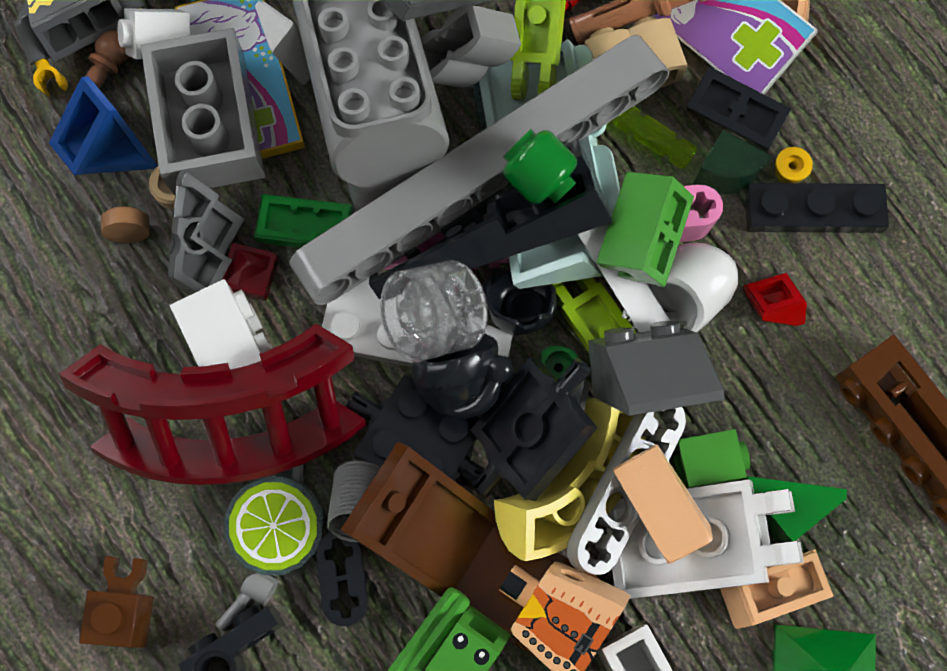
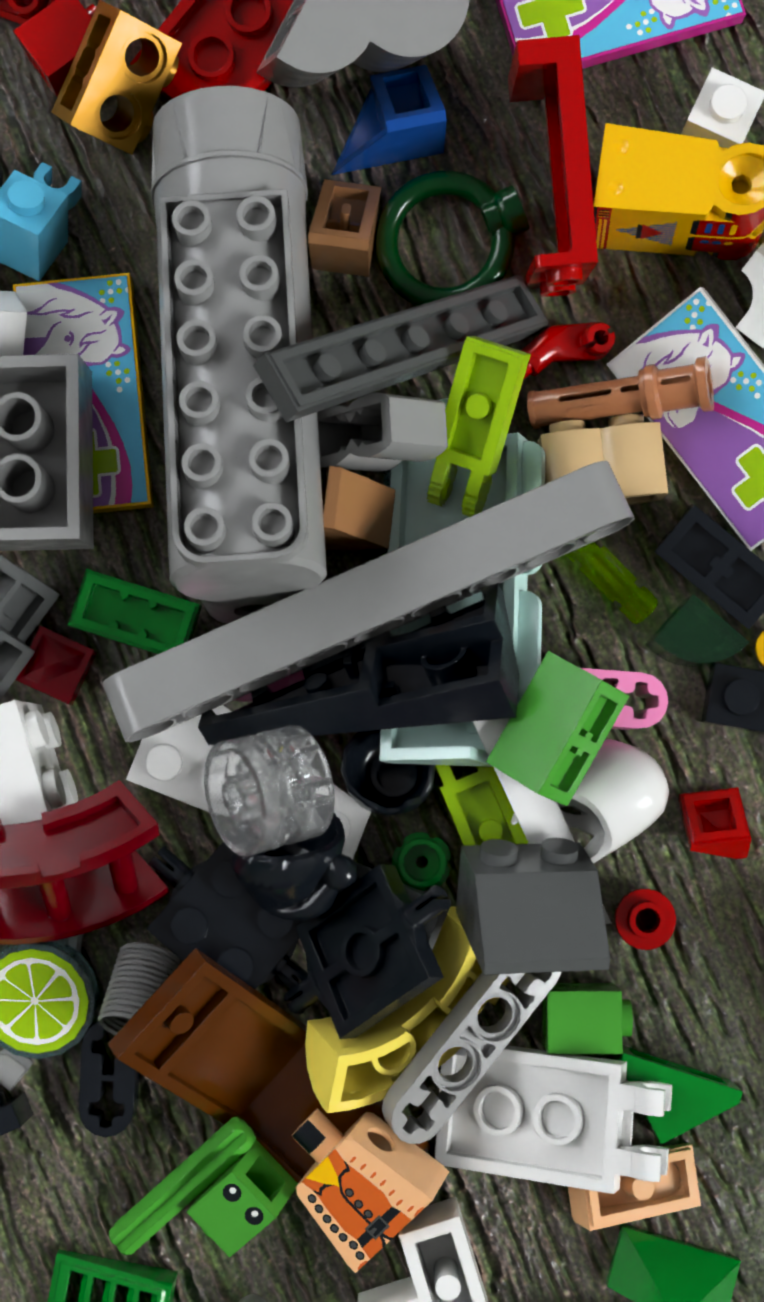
camera: 15 degrees right, 10 degrees up
(284, 41) = (138, 370): white slope -> none
(462, 109) = (356, 511): none -> medium nougat slope
(540, 167) = (435, 633): green head -> none
(664, 504) = (509, 1079): light nougat slope -> none
(733, 392) = (626, 919): none -> red plate

